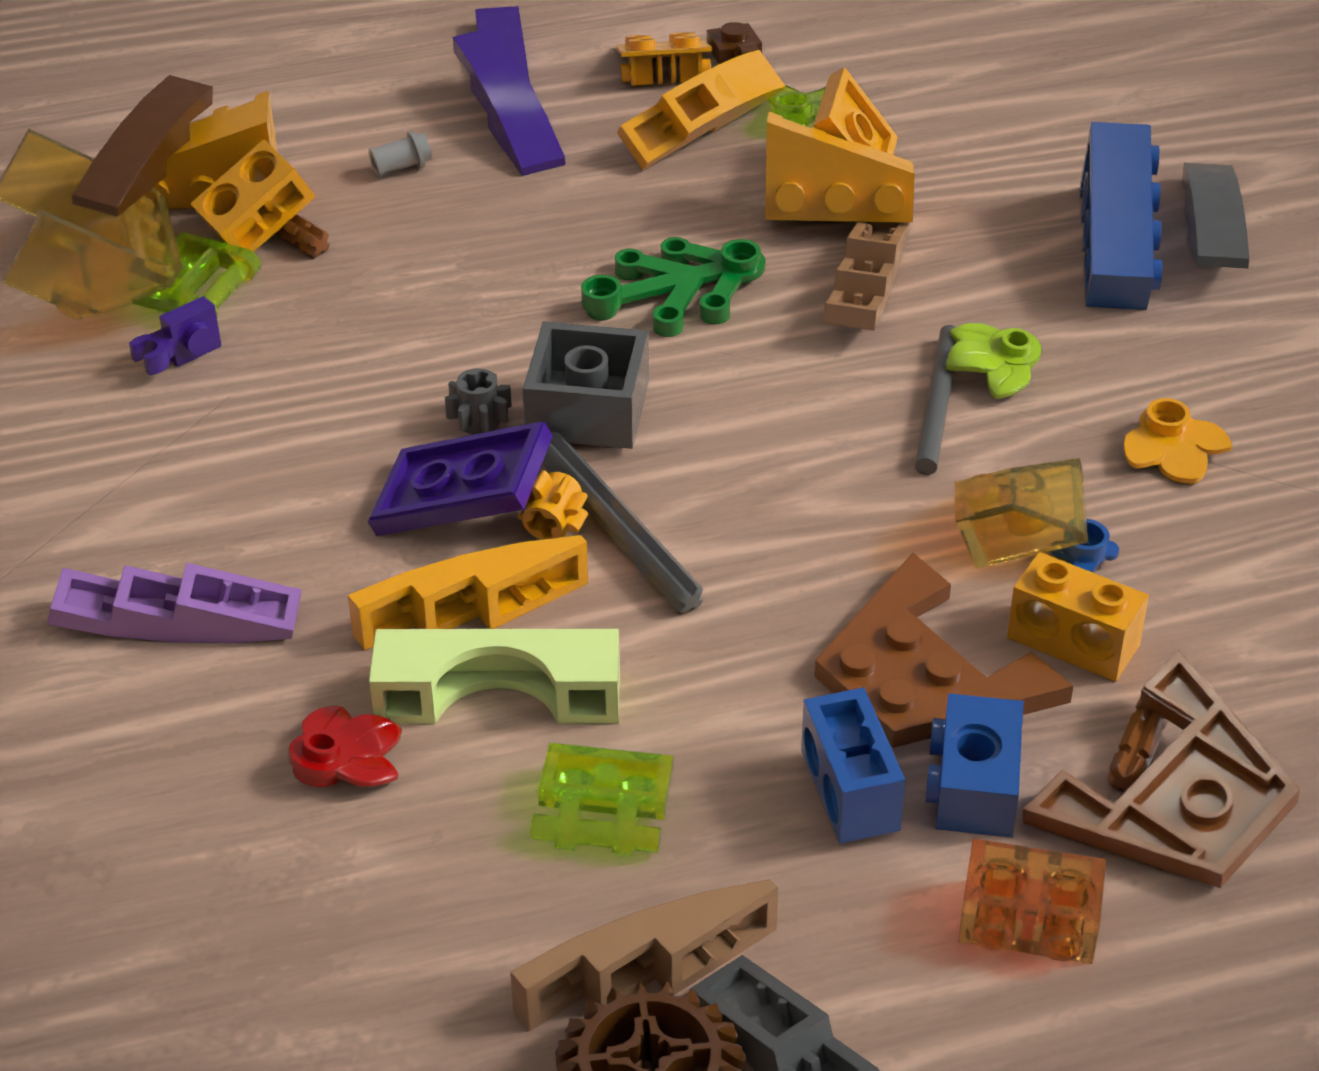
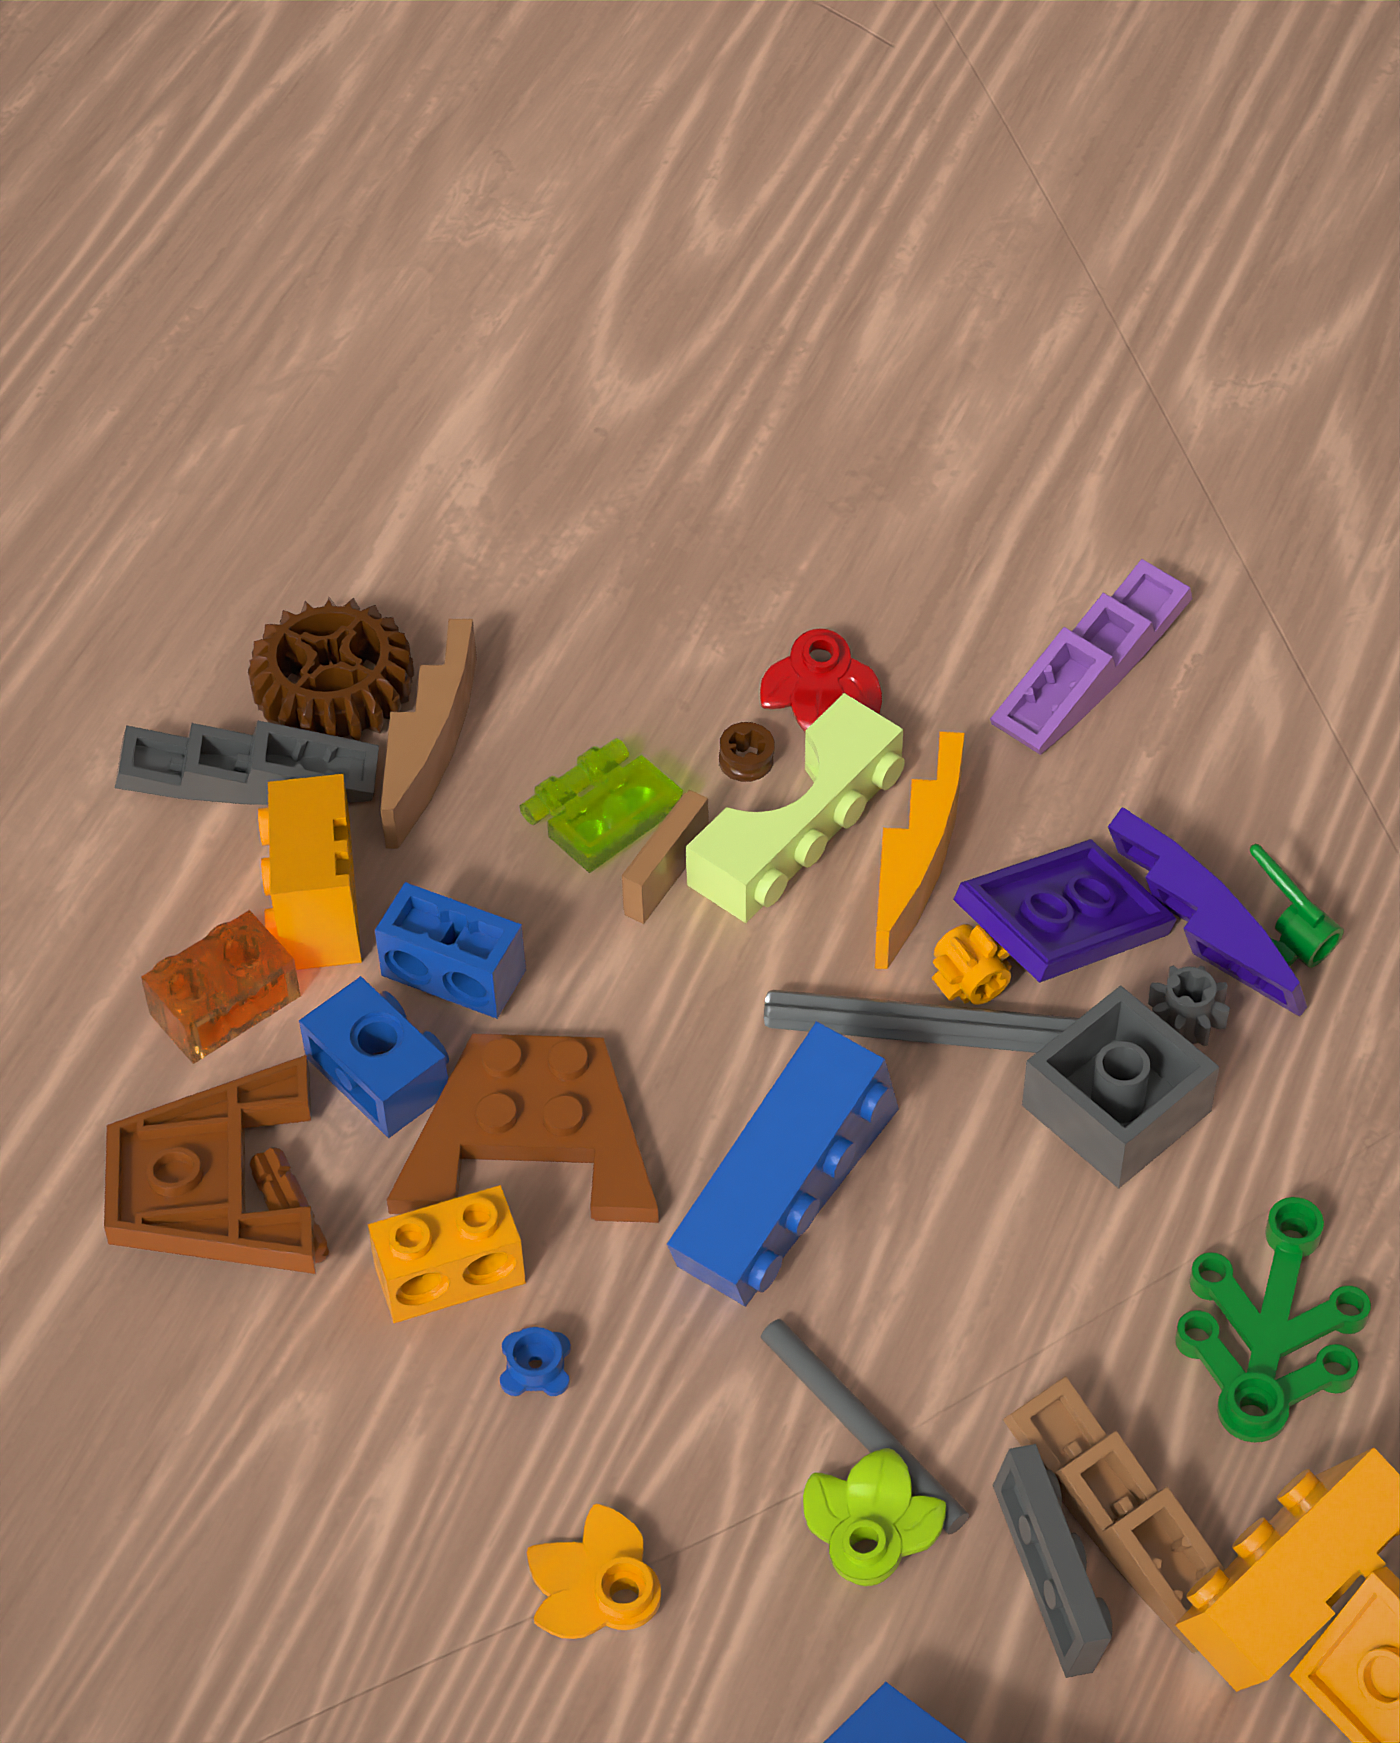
camera: 130 degrees right, 10 degrees up
(352, 389) = (1303, 926): none -> green plant
(392, 420) = (1217, 923): none -> dark purple slope
(458, 769) = (740, 738): none -> reddish brown bush
(622, 717) = (663, 857): none -> medium nougat tile
(814, 492) = (785, 1164): none -> blue wedge
(877, 909) = (310, 871): none -> light orange wedge
(932, 277) = (1053, 1560): none -> dark grey plate
(1022, 511) = (619, 1317): clear yellow slope -> none

